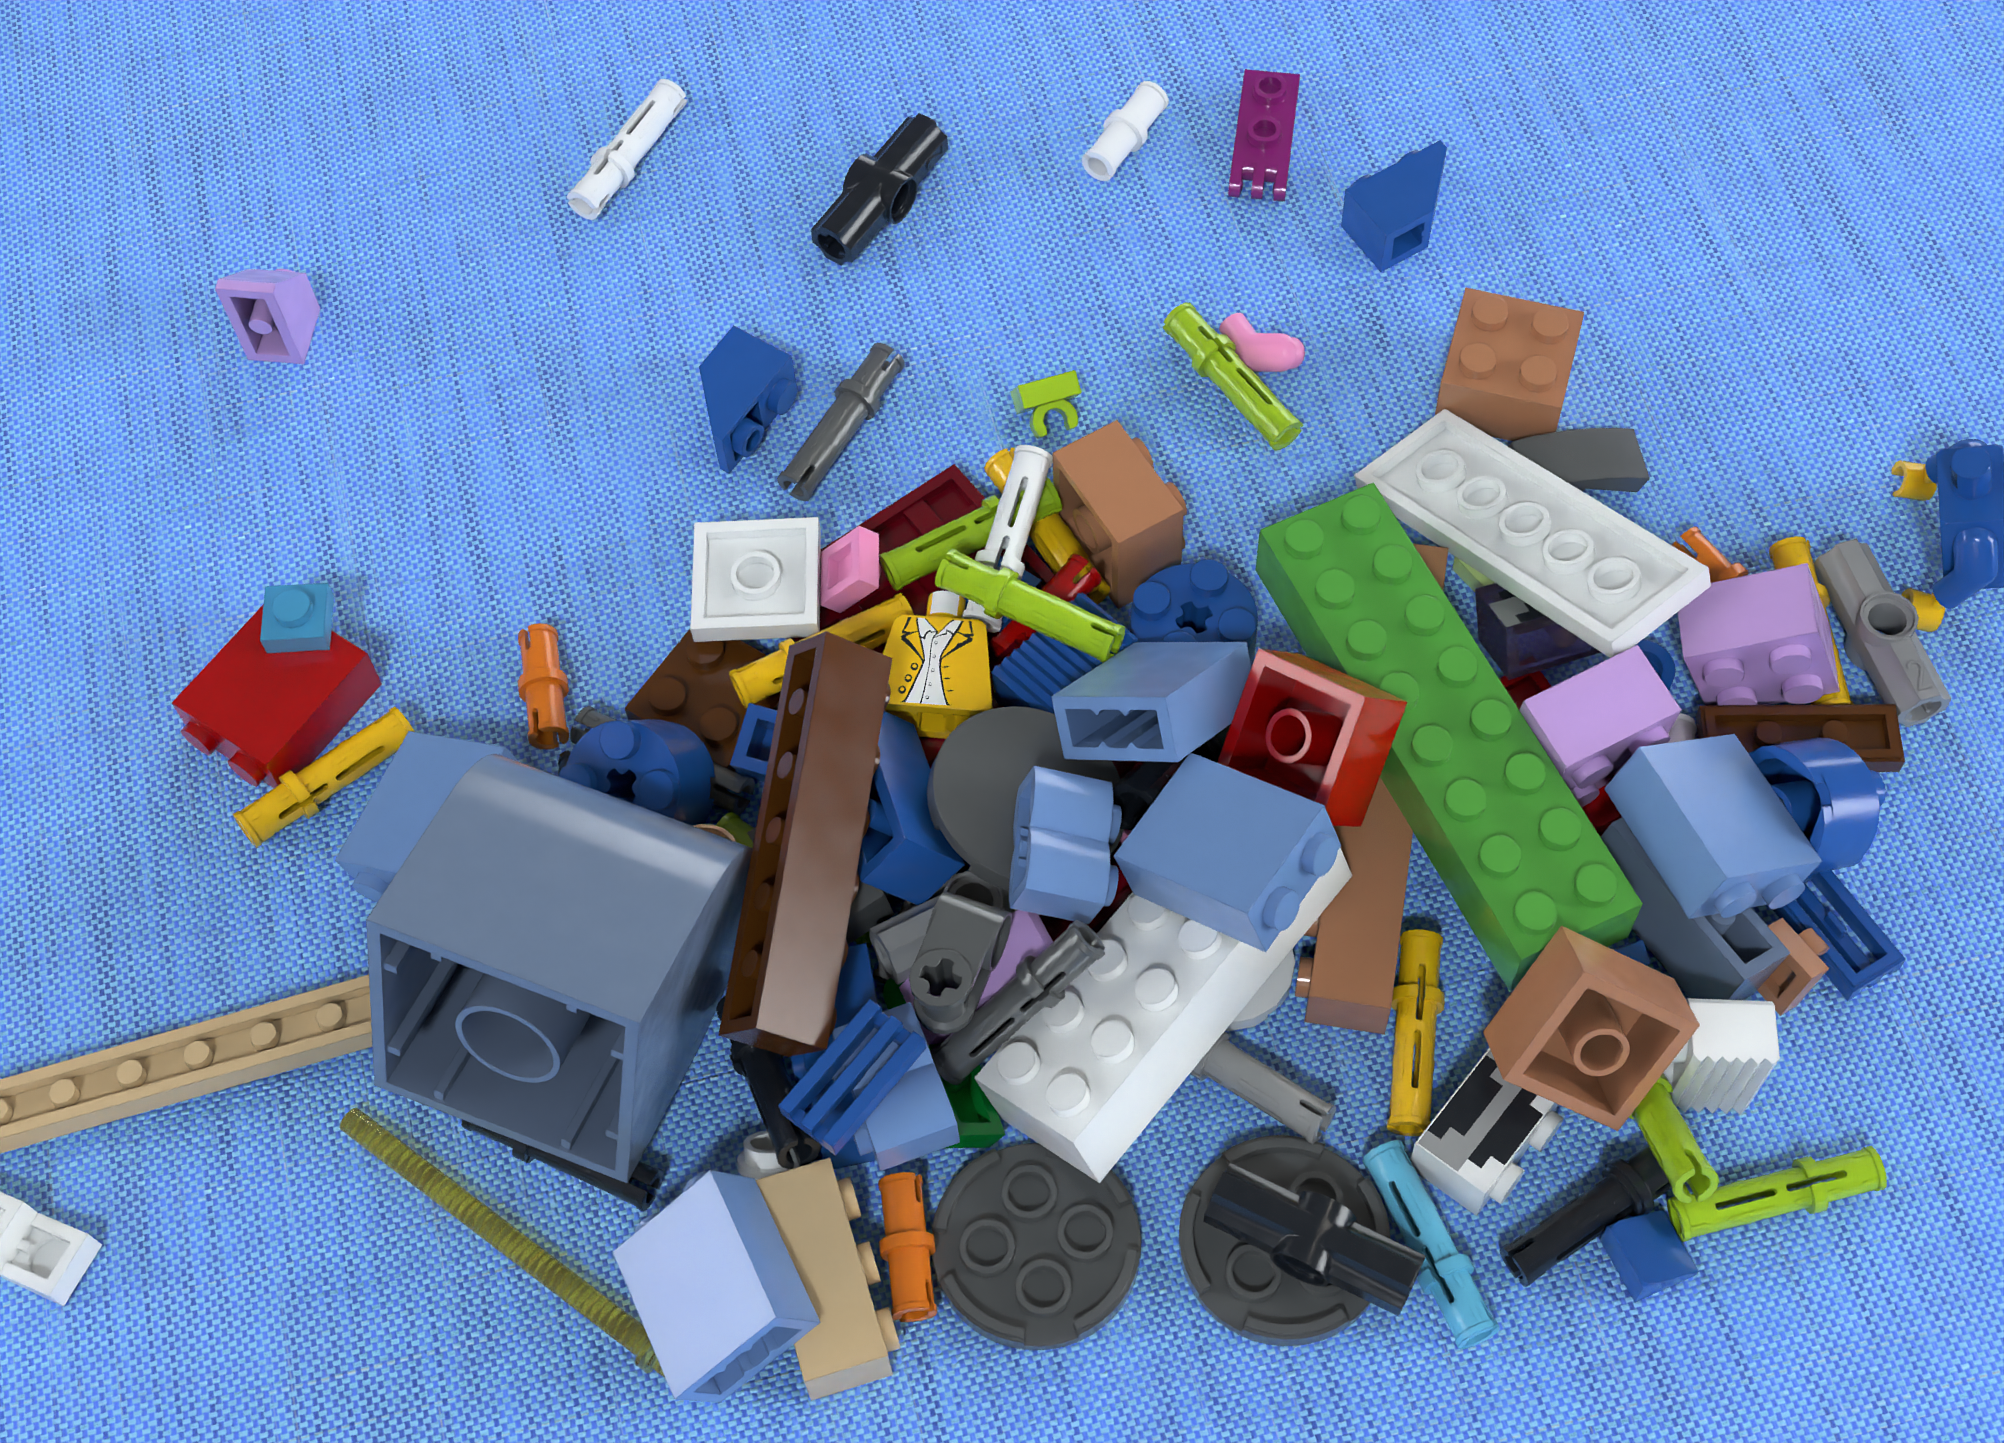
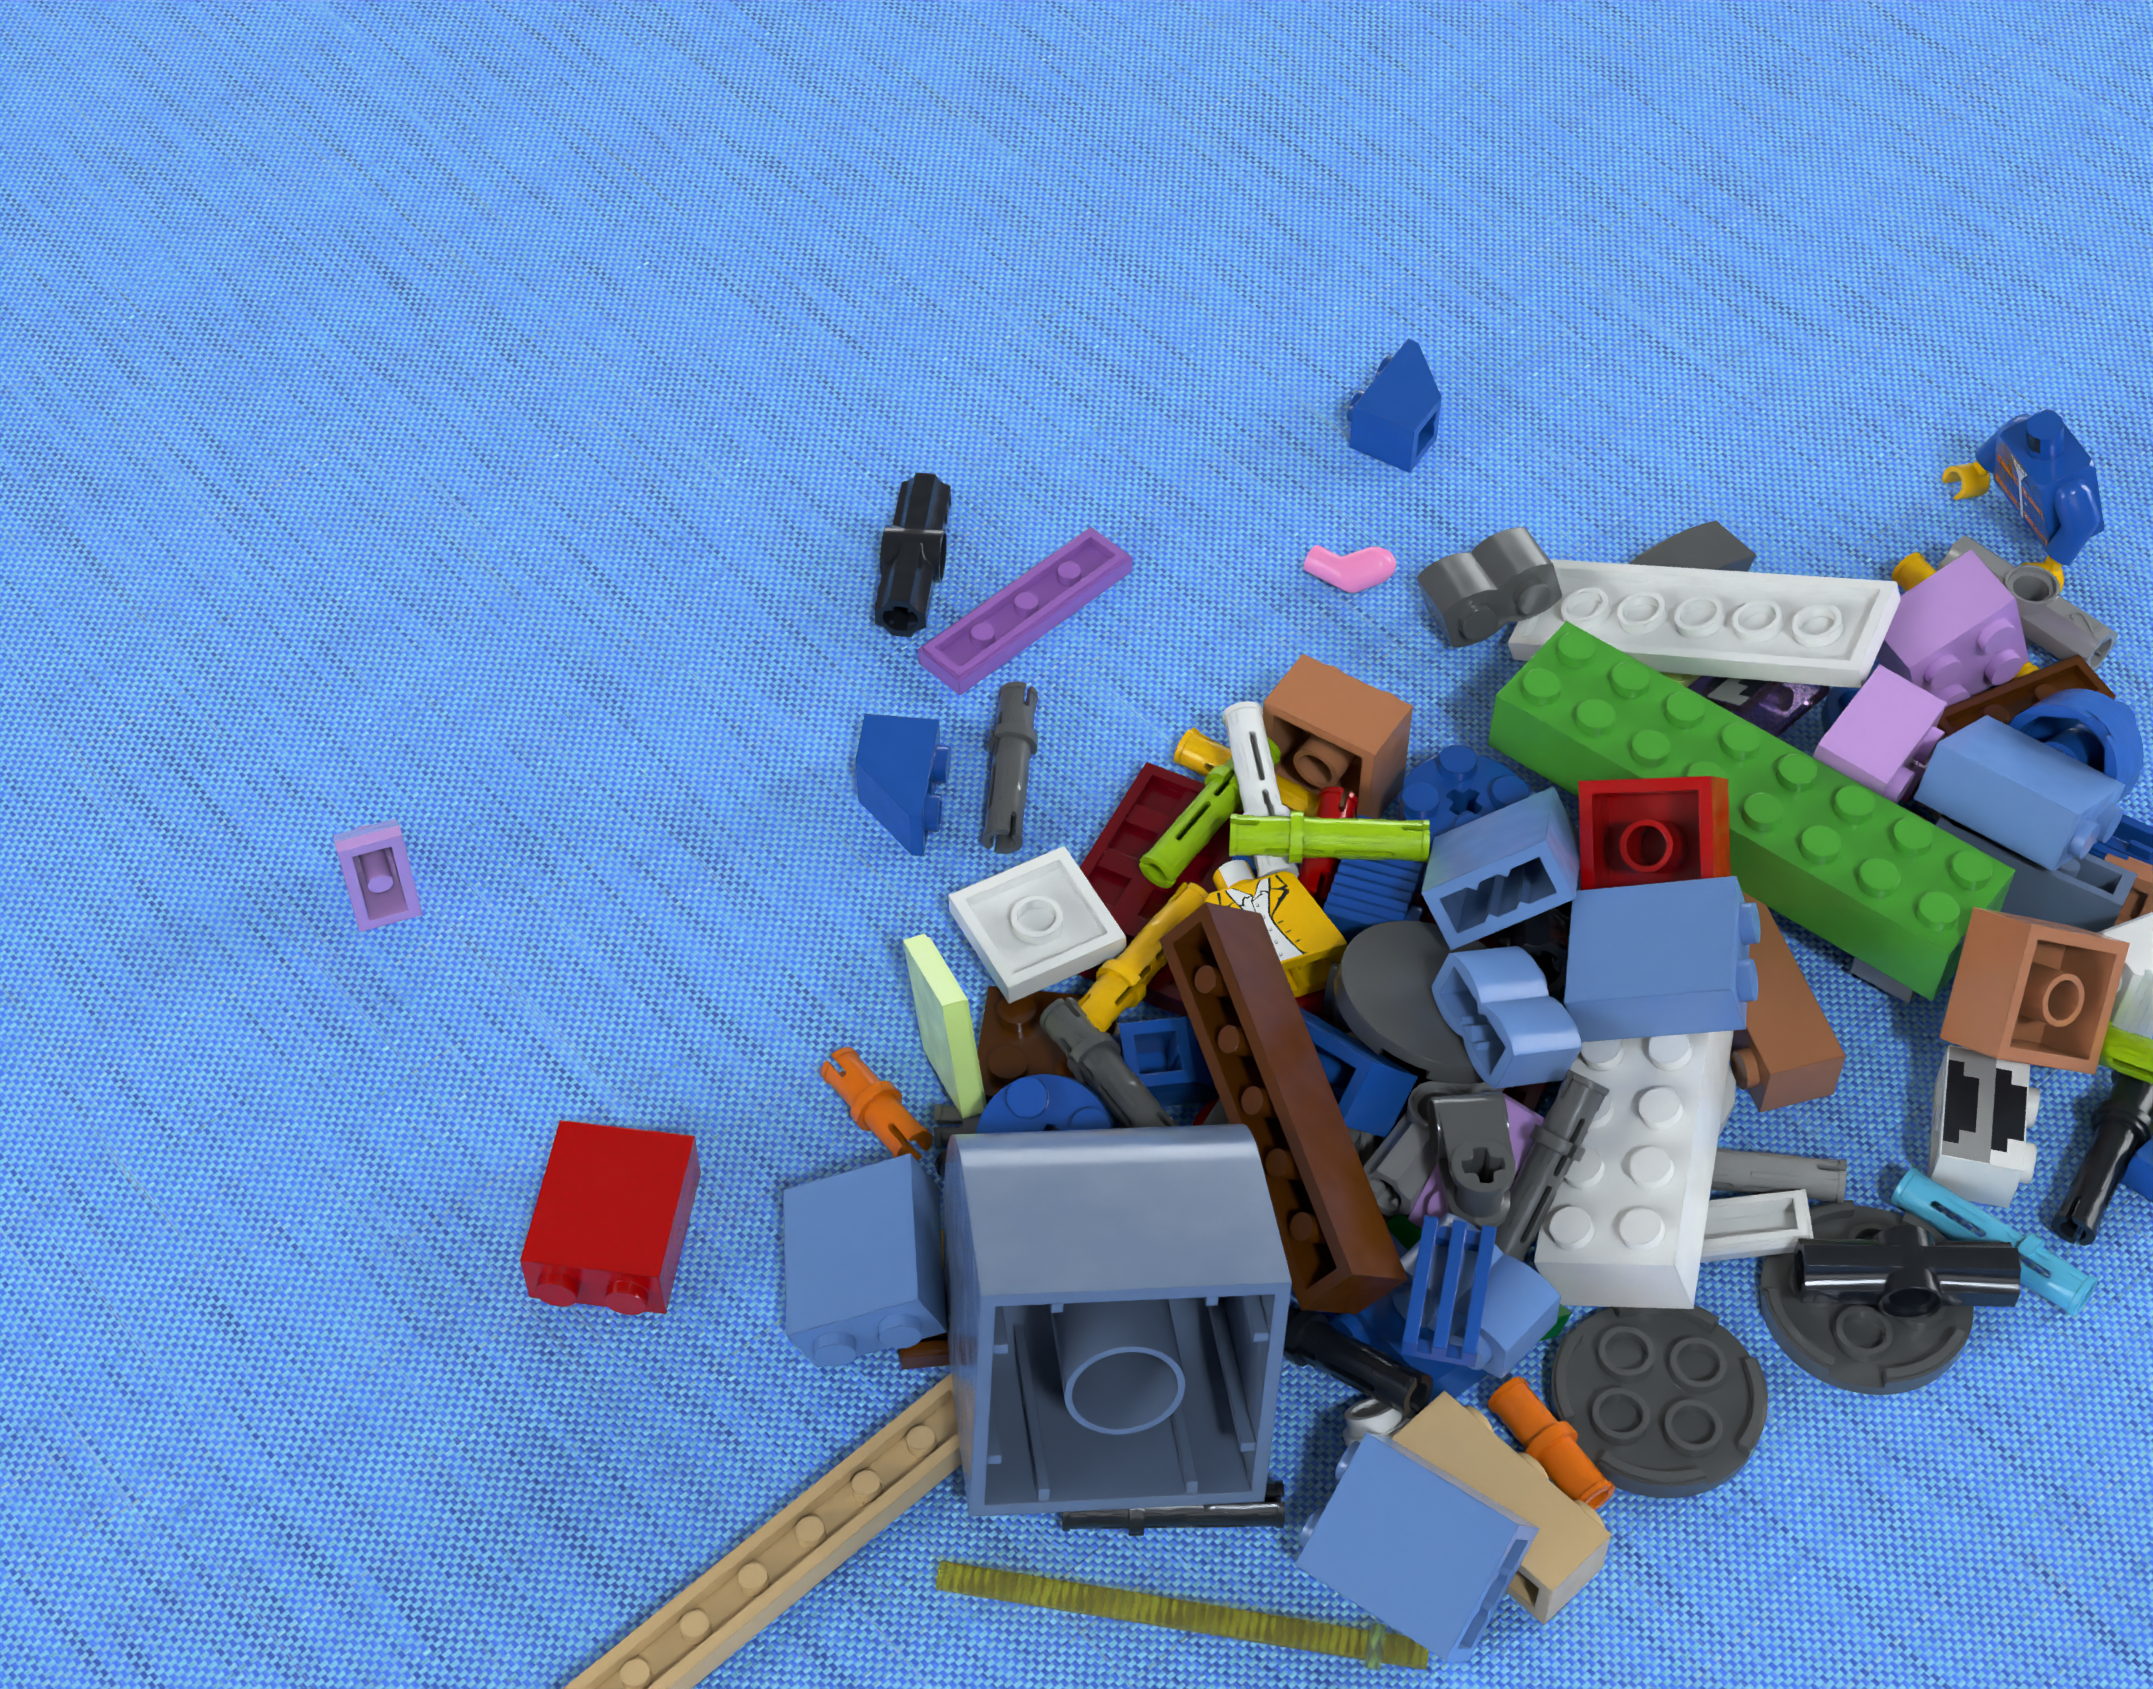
camera: 30 degrees left, 10 degrees down
(297, 618) = (606, 1128): dark azure plate -> none
(304, 791) = (697, 1295): yellow pin -> none
(614, 165) = (636, 620): white pin -> none
(614, 638) = (945, 1025): none -> yellowish green tile
(714, 728) = (1097, 1060): none -> dark grey pin
(850, 569) = (1124, 879): bright pink plate -> none
(950, 277) = (1024, 610): none -> medium lavender tile
(1048, 395) = (1193, 675): lime tile -> none
(1125, 131) = (1109, 429): white pin -> none
(1211, 1127) = (1755, 1225): none -> white tile
(1216, 358) = (1322, 591): lime pin -> none
(1264, 132) = (1234, 392): magenta hinge -> none
(1362, 415) = (1492, 585): none -> dark grey brick
(1419, 959) = (1872, 1084): yellow pin -> none
(1509, 364) = (1585, 499): nougat brick -> none

